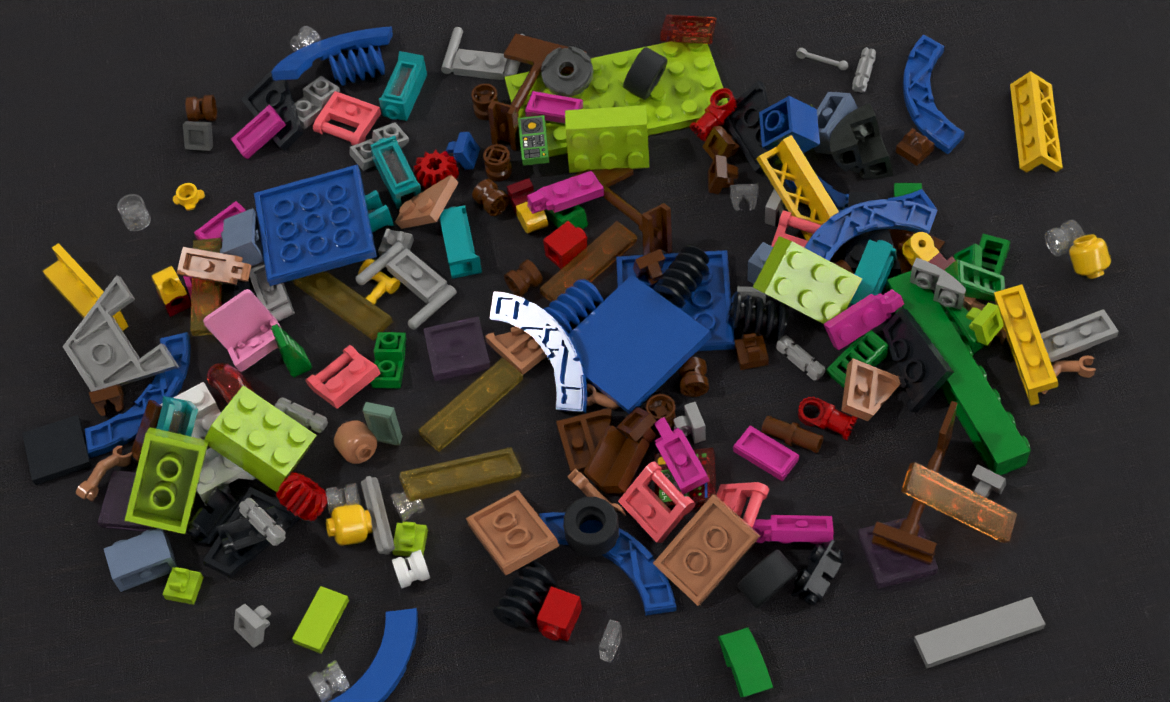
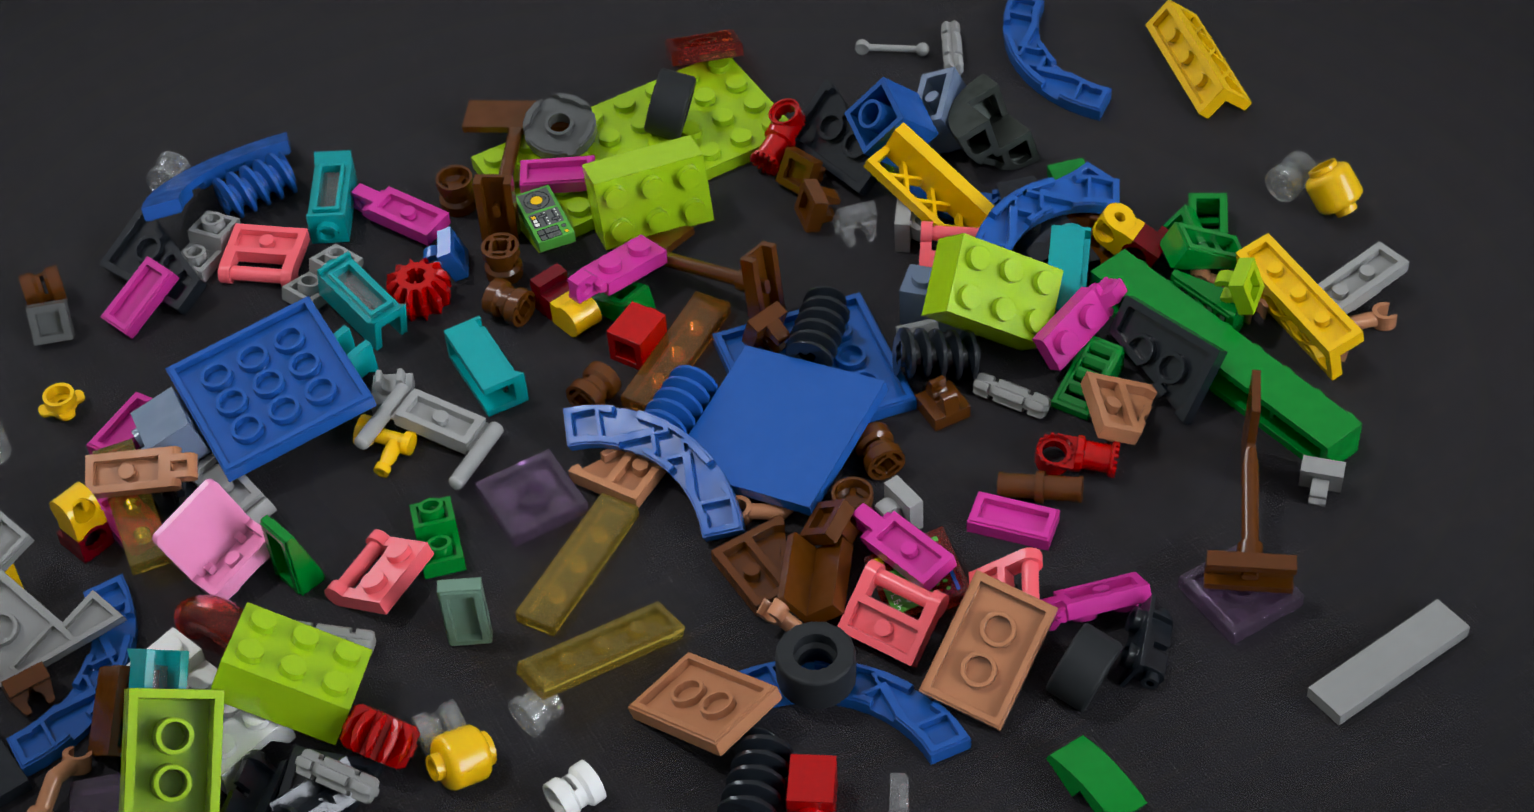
camera: 20 degrees left, 10 degrees down
(345, 303) = (343, 481): clear yellow tile -> none
(355, 442) = (429, 649): nougat head -> none
(379, 519) = (508, 747): light grey axle -> none
(409, 538) = (553, 753): lime tile -> none
(427, 205) = (423, 330): nougat wing -> none
(445, 109) = (401, 212): none -> dark pink hinge
(476, 63) = (423, 150): light grey plate -> none
(914, 147) = (1055, 119): reddish brown tile -> none
(947, 289) = (1173, 256): light grey slope -> none
(959, 502) = (1300, 504): clear orange tile -> none

